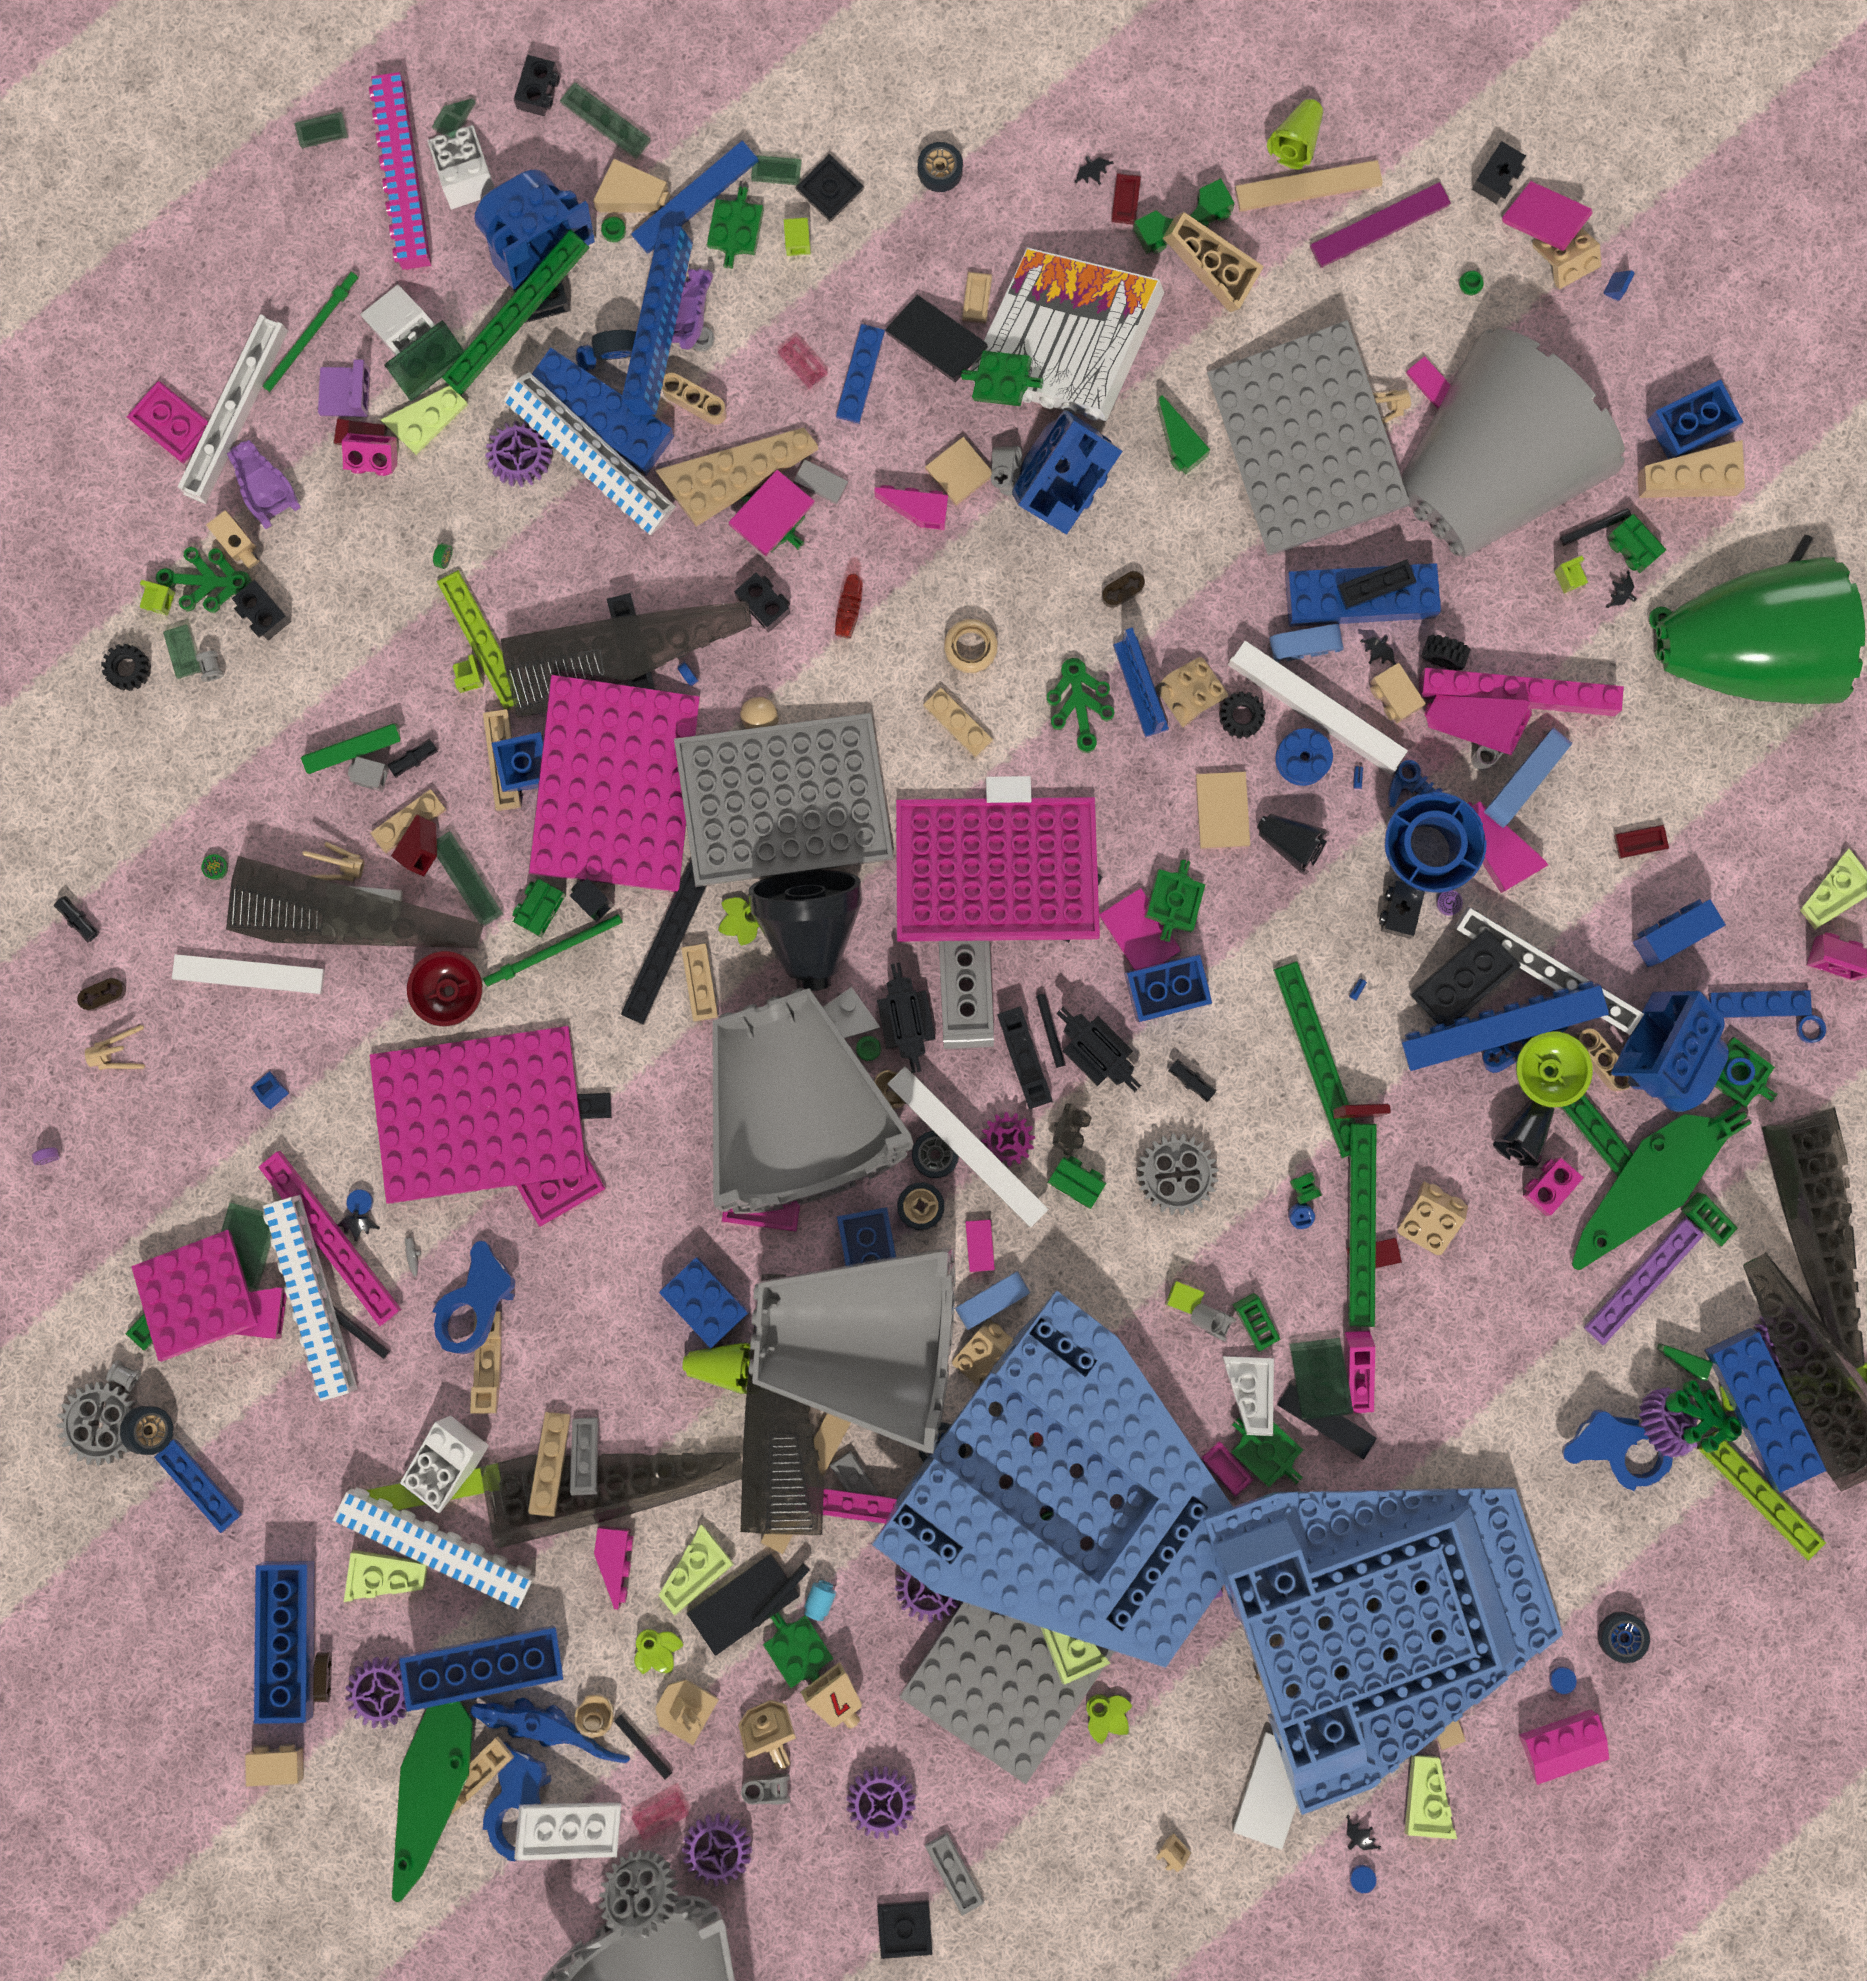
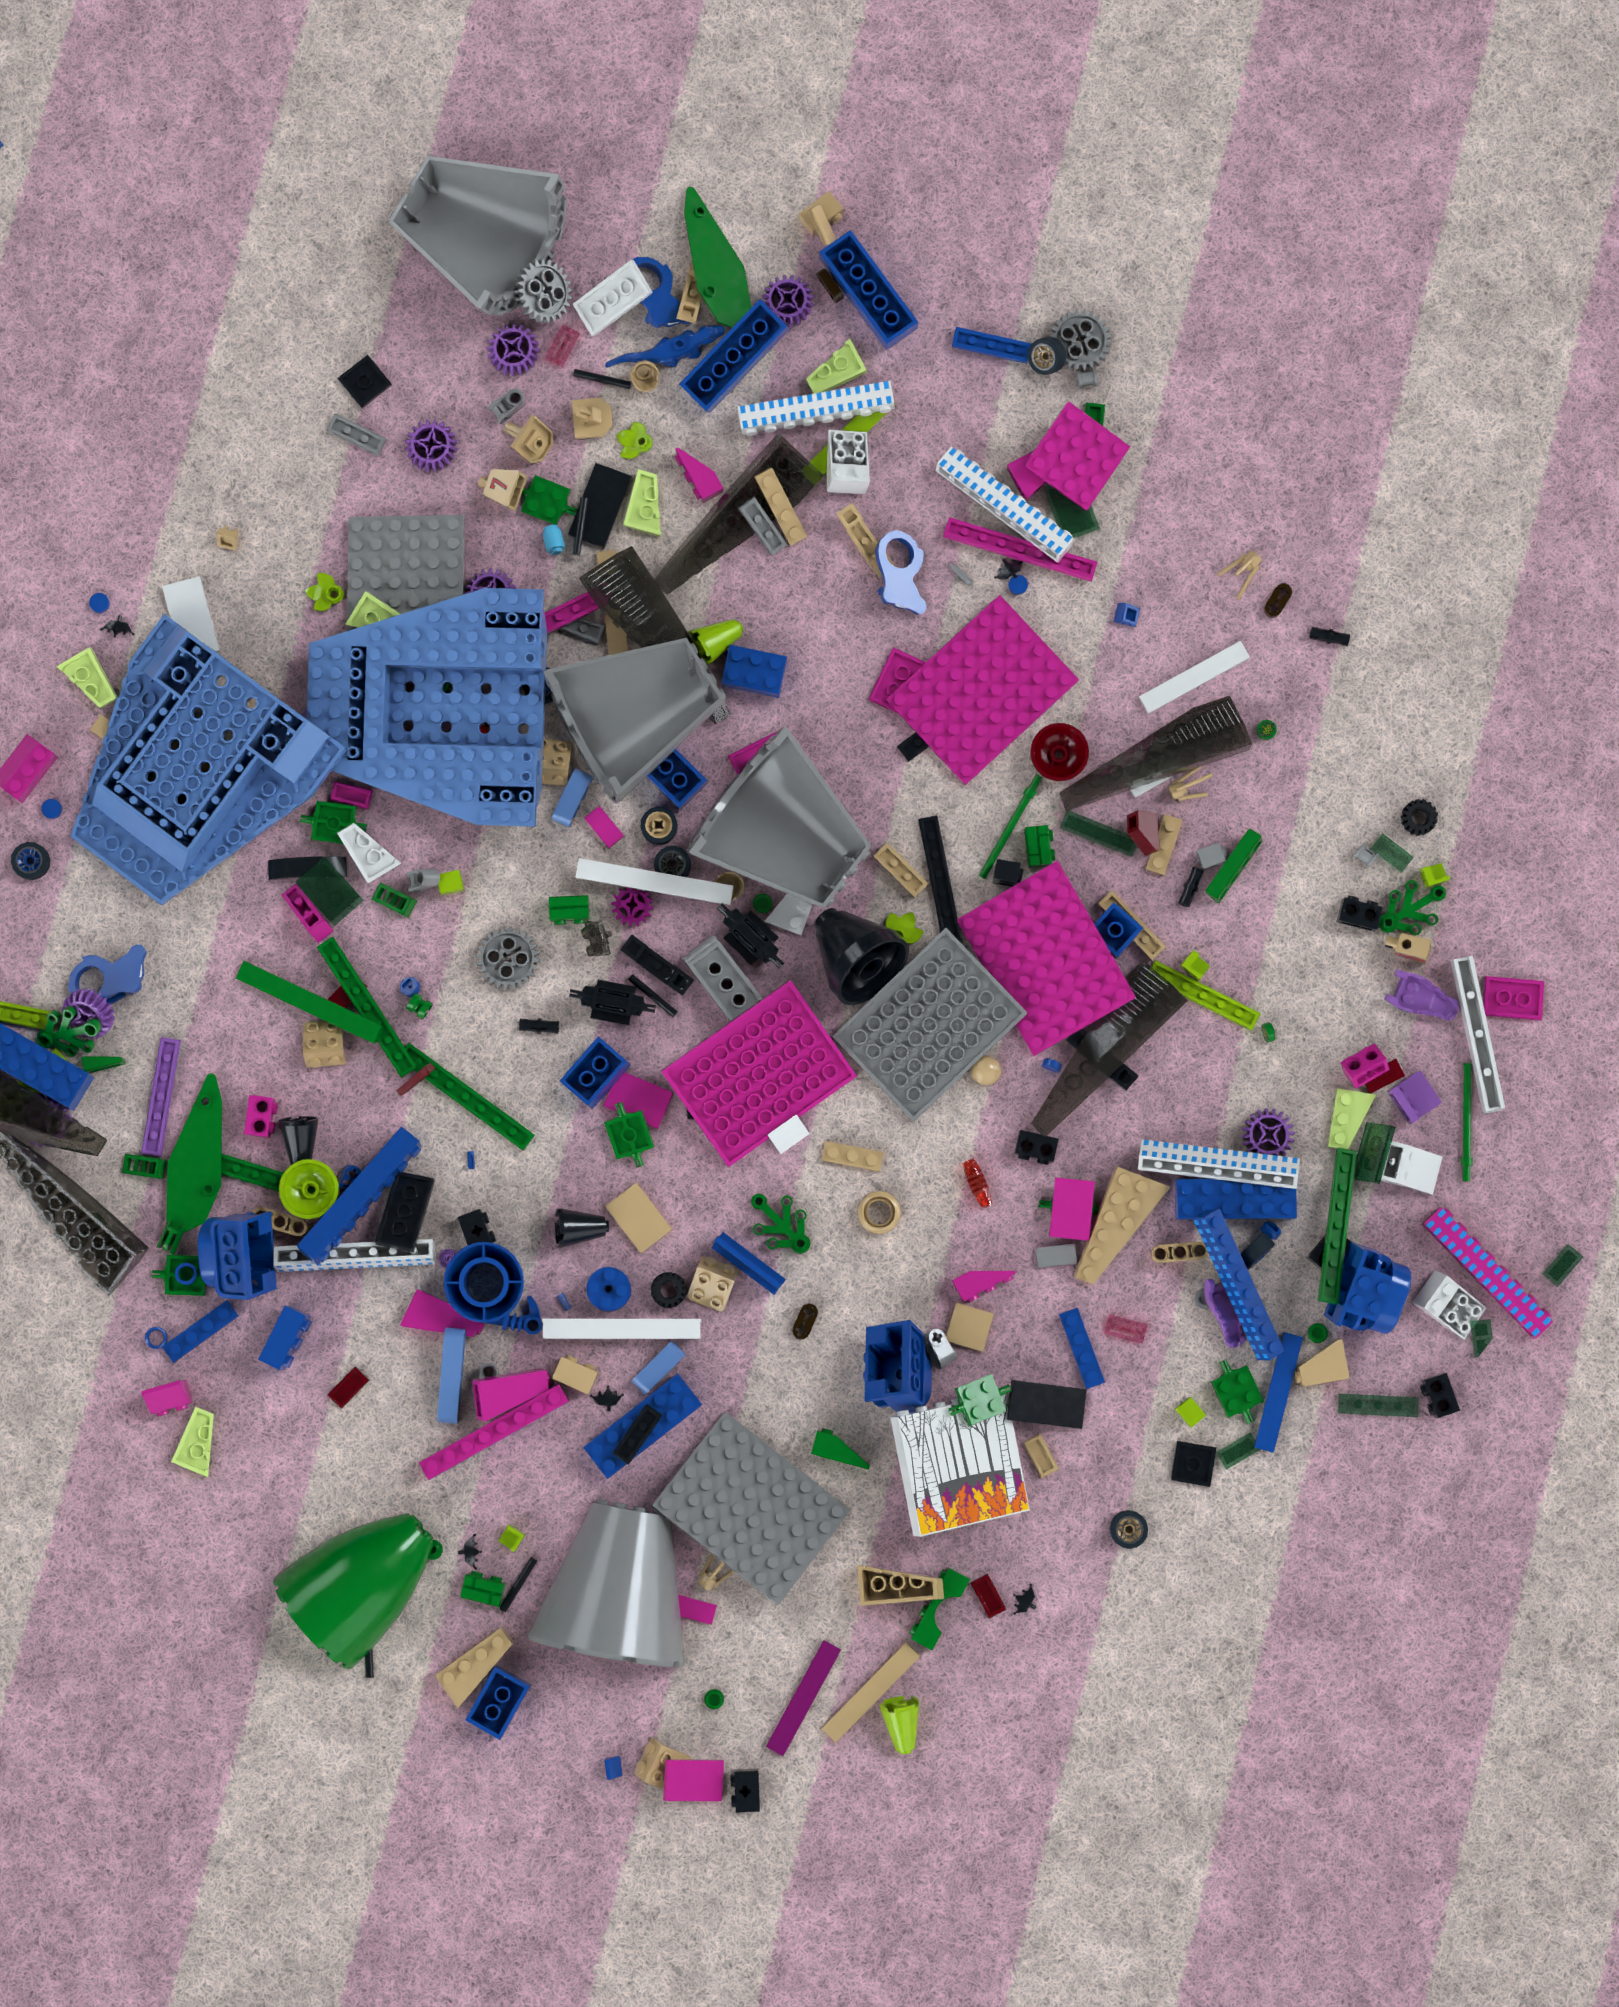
camera: 145 degrees right, 0 degrees up
(45, 1156) = (1236, 477): medium lavender tile -> none
(281, 1752) = (821, 225): none -> tan slope
(362, 1335) = (957, 505): black bar -> none
(1421, 1272) = (309, 1002): none -> green tile
(1445, 652) = (561, 1423): black tyre -> none

